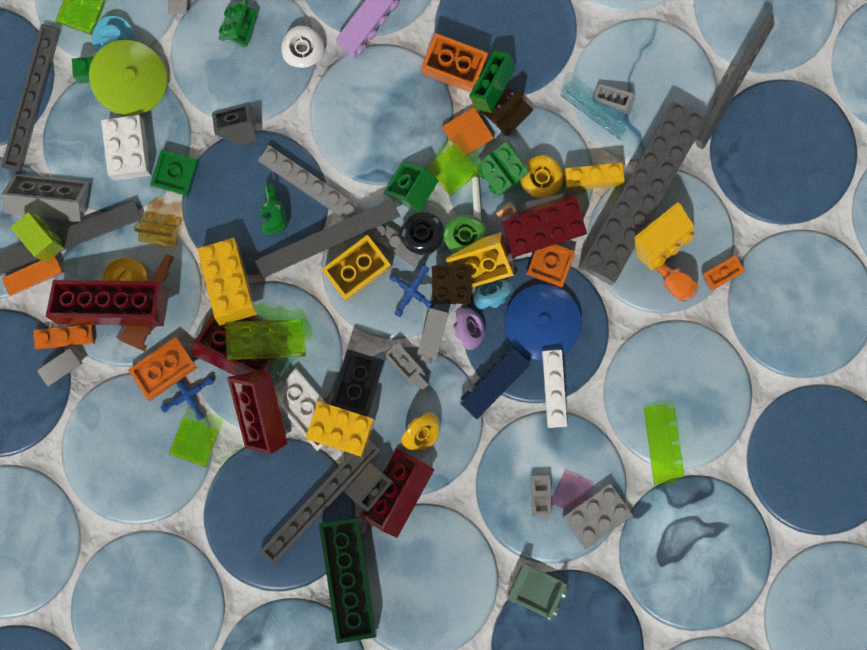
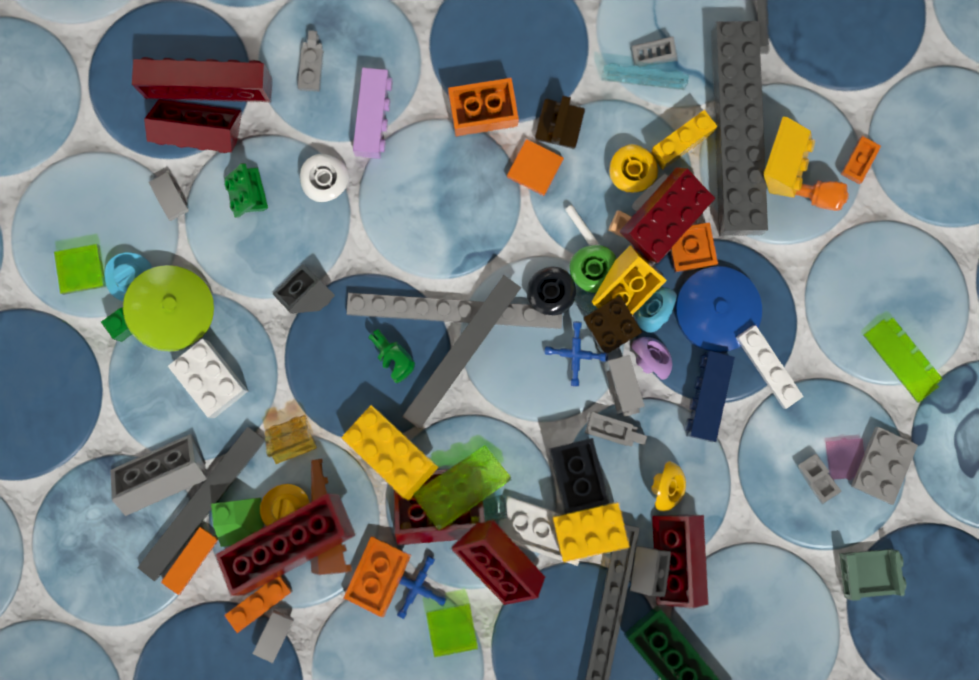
camera: 30 degrees left, 0 degrees up
(31, 98) = (82, 385): dark grey tile -> none
(37, 237) = (173, 521): lime brick -> none
(83, 264) = (236, 520): none -> bright green slope
(174, 173) = (271, 375): green plate -> none
(356, 268) = (509, 363): yellow brick -> none
(411, 186) = (512, 251): green slope -> none
(453, 169) = (543, 210): clear neon green plate -> none
(492, 81) = (531, 103): green brick -> none
(503, 169) = (592, 182): green plate -> none

